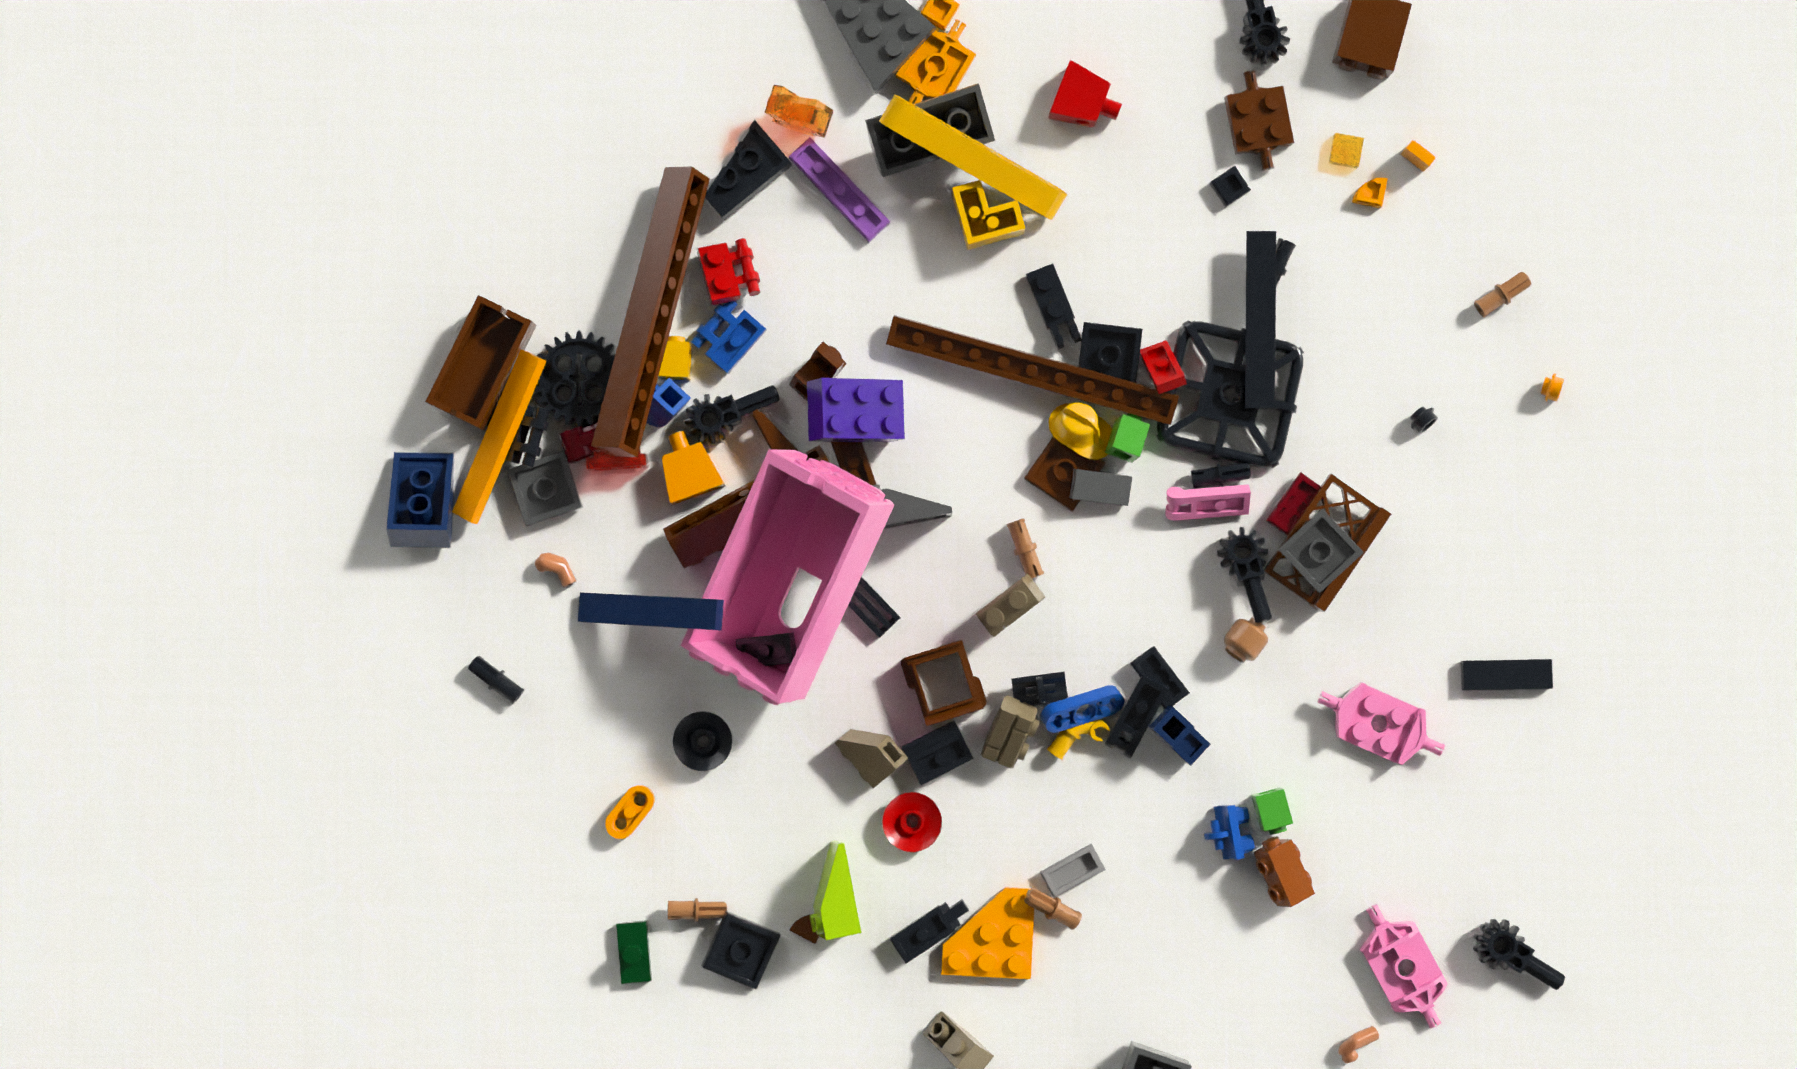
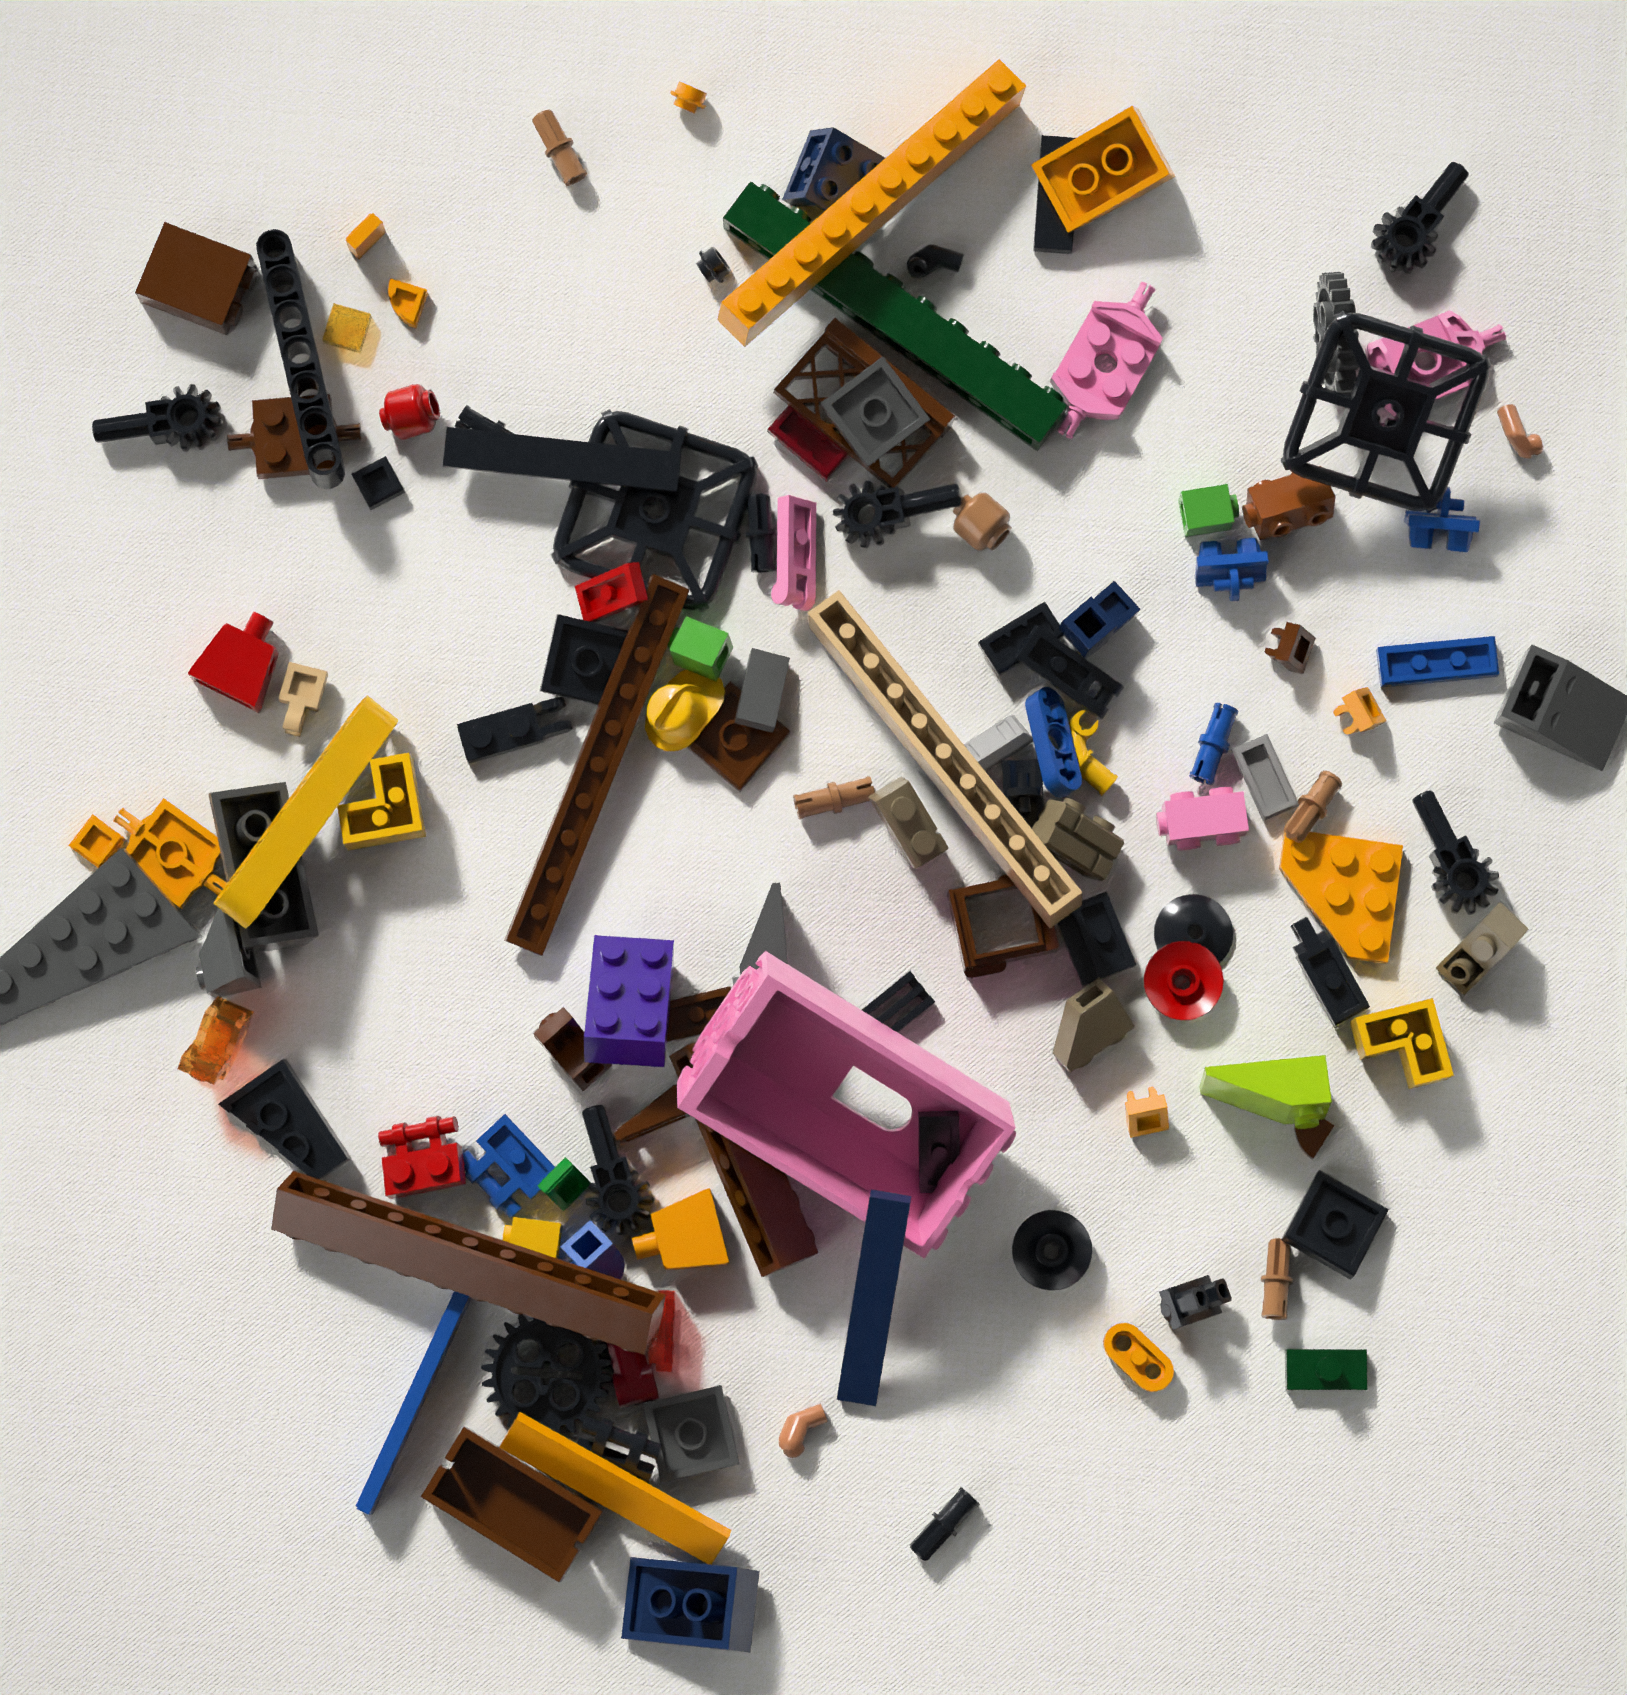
camera: 85 degrees left, 5 degrees down
(546, 283) = (413, 1403): none -> blue tile
(673, 849) = (1193, 1301): none -> black hips
(718, 377) = (564, 1184): none -> green tile
(809, 802) = (1146, 1114): none -> light orange tile
(839, 189) = (325, 999): medium lavender tile -> none
(853, 110) = (224, 965): none -> dark grey slope
(887, 998) = (1412, 1032): none -> yellow brick
(966, 831) = (1200, 911): none -> black dish
(1025, 1018) = (1452, 857): none -> black gear
(1033, 817) = (1193, 819): none -> bright pink brick
(1059, 627) = (945, 759): none -> tan brick
(1067, 146) = (301, 691): none -> tan plate
(1074, 662) = (999, 742): none -> tile
(1094, 829) = (1213, 743): none -> blue pin
(1131, 940) = (1363, 710): none -> light orange tile
(1173, 884) = (1293, 648): none -> reddish brown tile
(1174, 994) = (1437, 661): none -> blue tile
(1279, 1003) = (1459, 527): none -> blue hips
(1286, 203) = (410, 411): none -> red head
(1329, 110) = (300, 375): none -> black beam
(1374, 929) = (1373, 390): none -> black plate
(1398, 559) = (907, 323): none -> dark green brick
(1416, 897) = (1331, 299): none -> dark grey gear
(1446, 583) = (931, 258): none -> black arm
(1483, 533) = (871, 203): none -> light orange brick
(1501, 507) = (828, 168): none -> bracket
(1529, 708) = (1103, 169): none -> light orange slope

